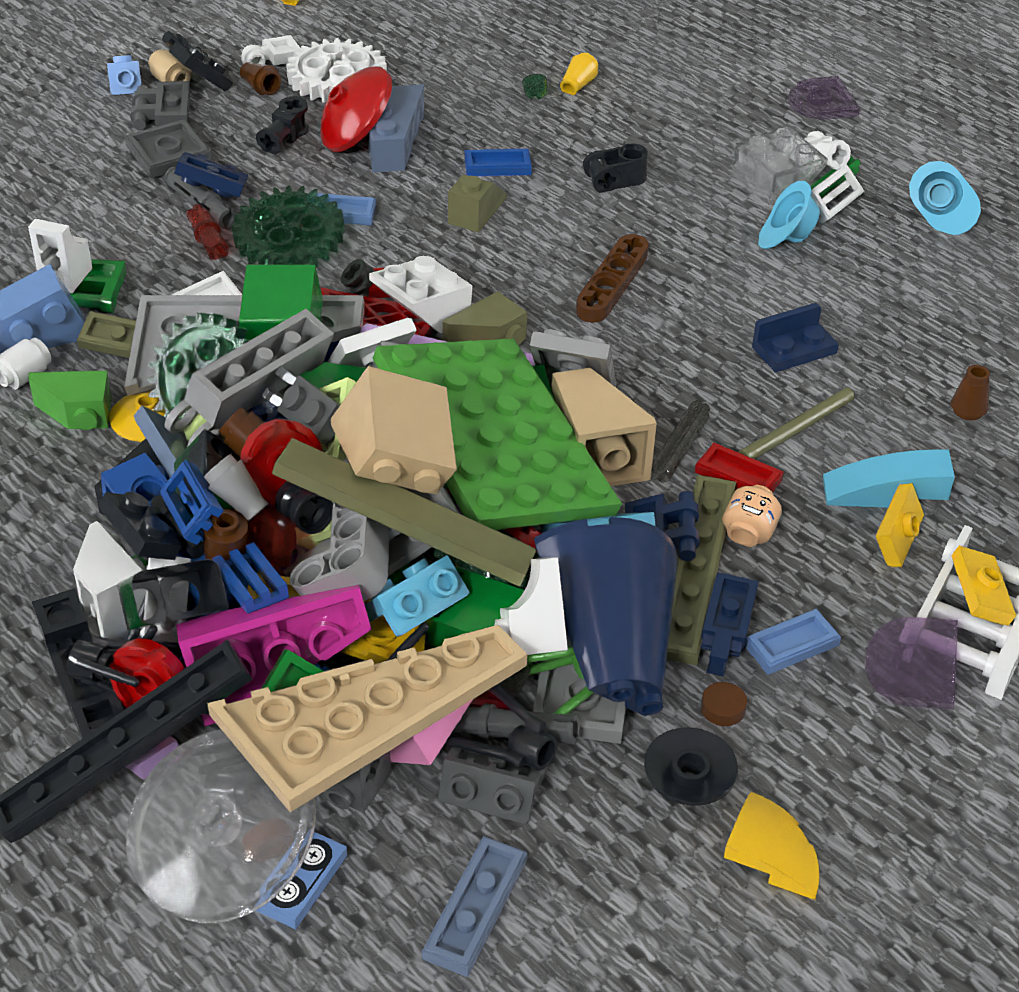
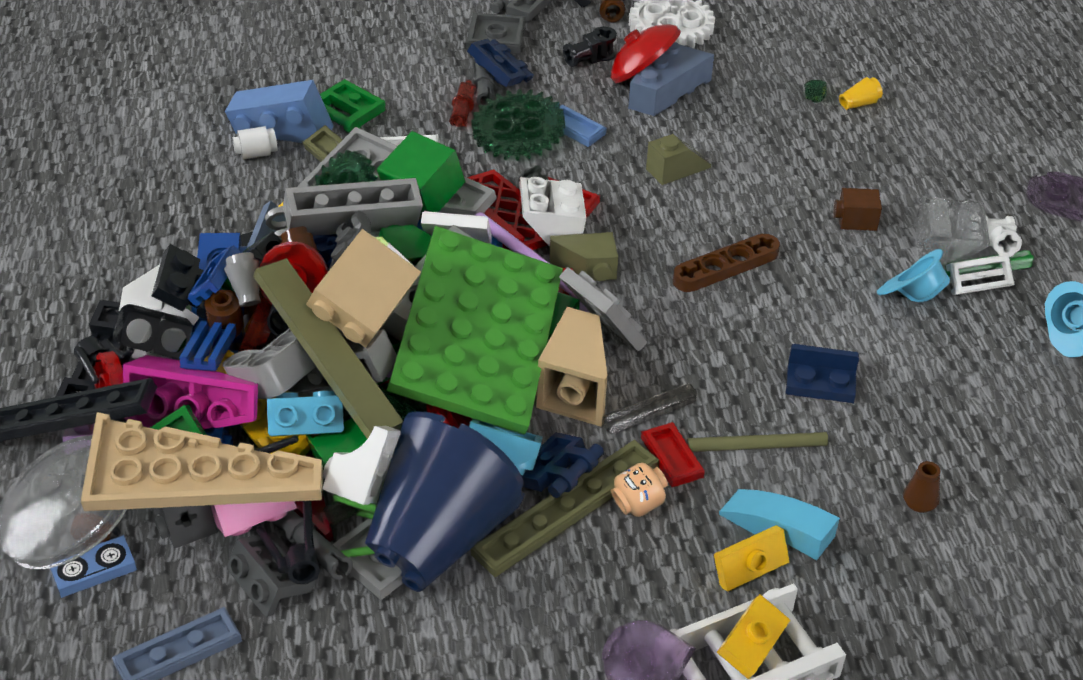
camera: 35 degrees right, 0 degrees up
(66, 253) = (334, 79): white arch -> none
(73, 397) = (265, 179): bright green slope -> none
(497, 162) = (728, 138): blue tile -> none
(620, 168) = (816, 179): black piece -> none
(682, 178) = (858, 209): none -> reddish brown brick
(694, 752) = (399, 629): black dish -> none
(723, 704) = (481, 614): reddish brown tile -> none
(727, 619) = (543, 556): dark blue hinge -> none
(792, 641) = (580, 599): medium blue tile -> none

